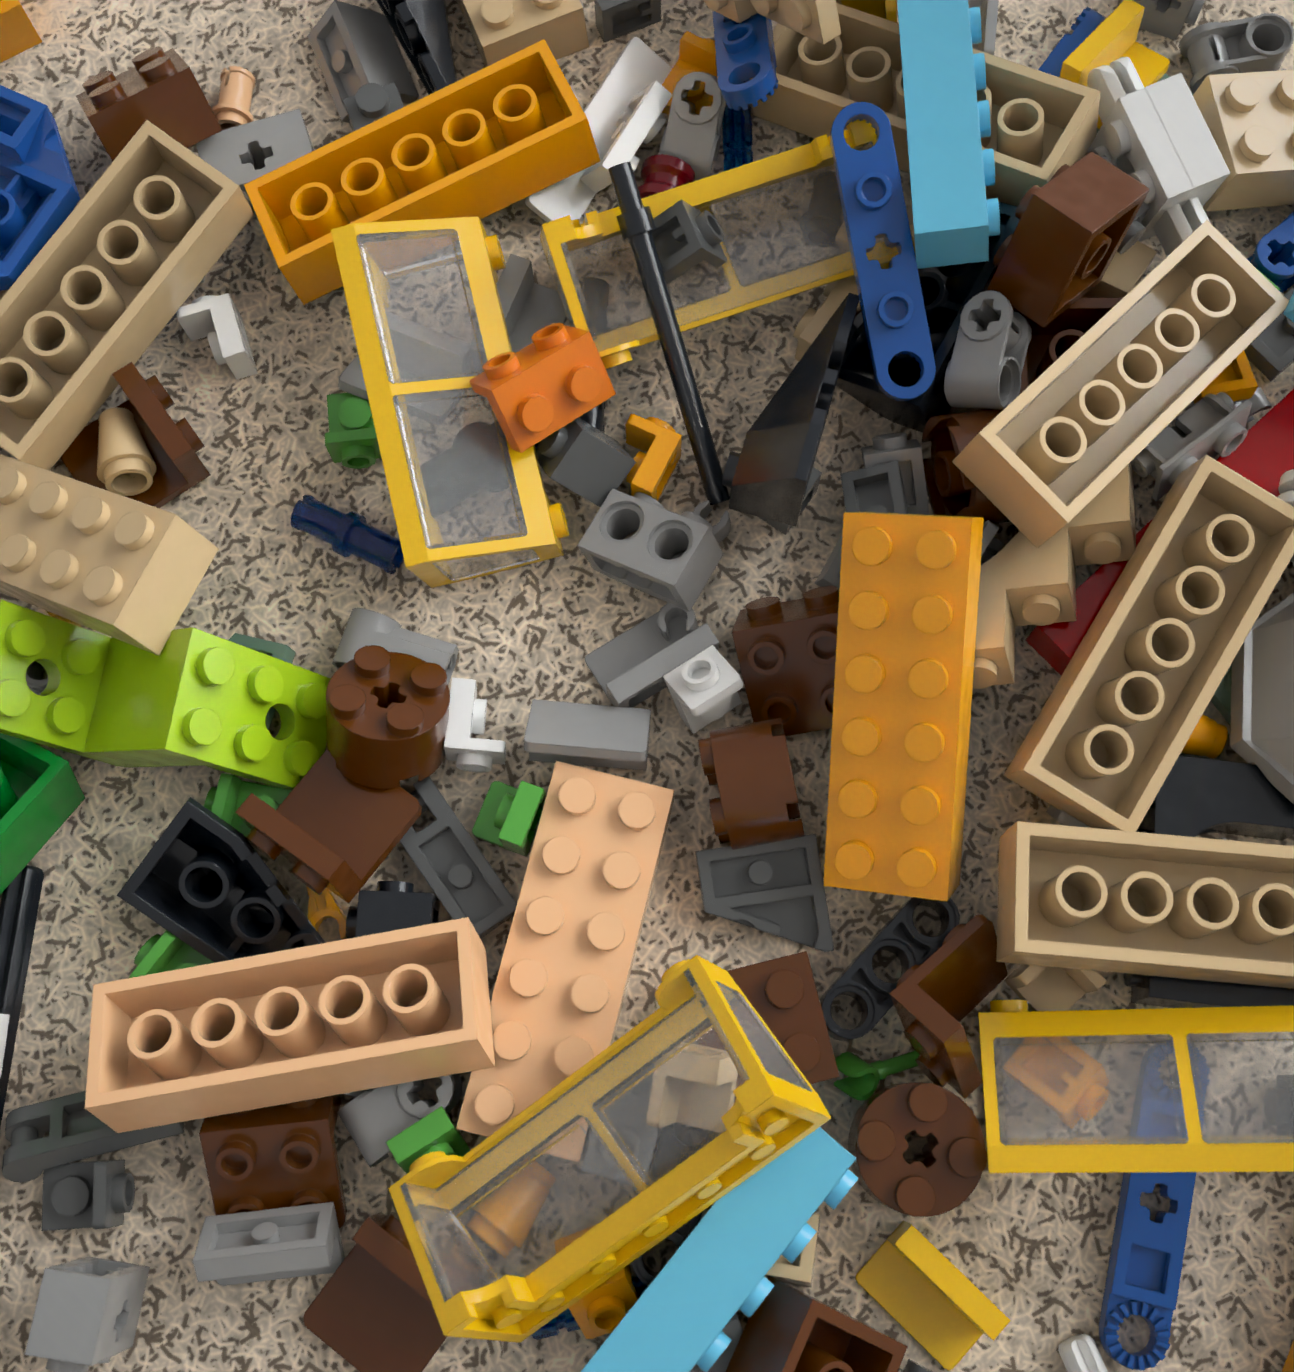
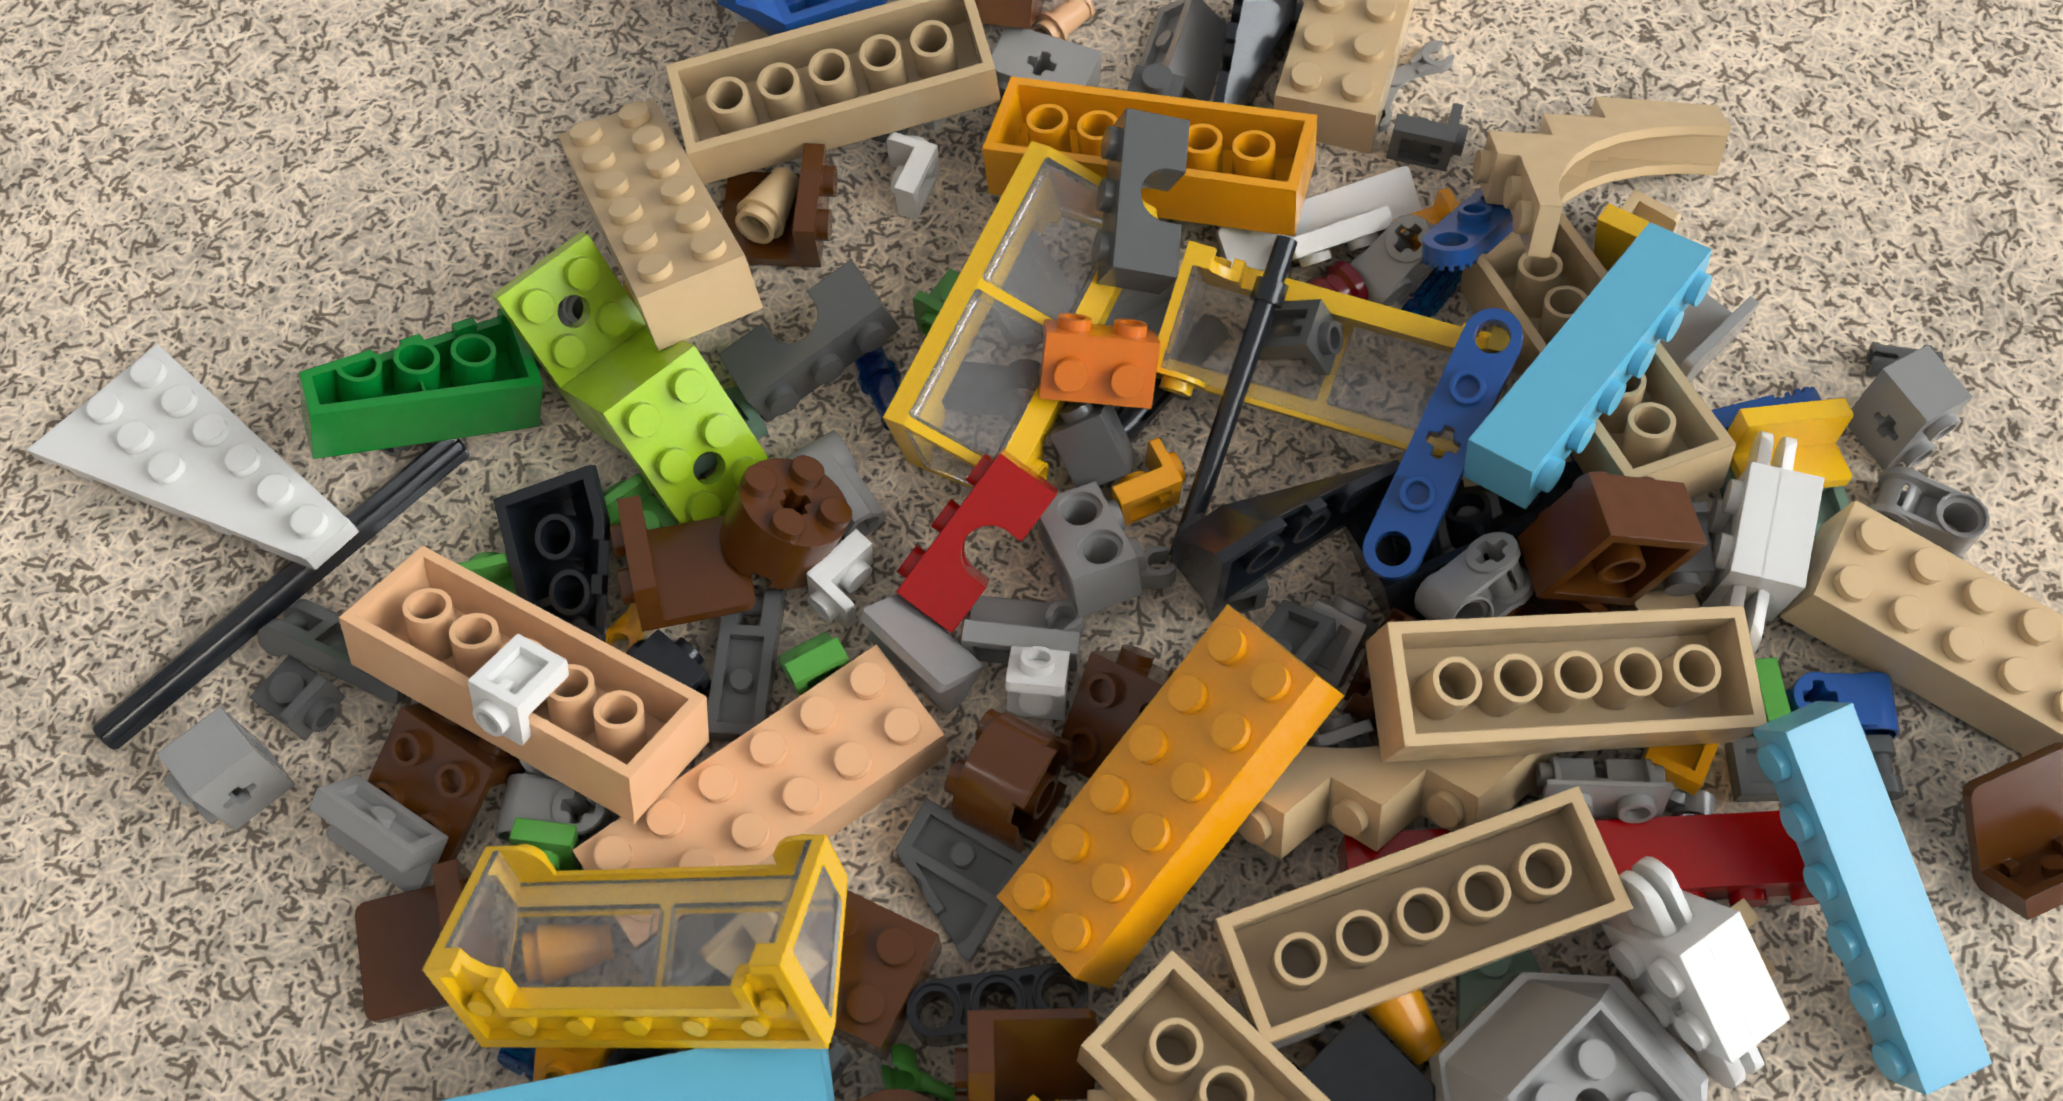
camera: 40 degrees right, 10 degrees down
(266, 595) = (846, 328): none -> dark grey arch
(307, 1042) = (514, 686): none -> white bracket
(489, 260) = (1133, 245): none -> dark grey arch
(556, 561) = (942, 578): none -> red arch

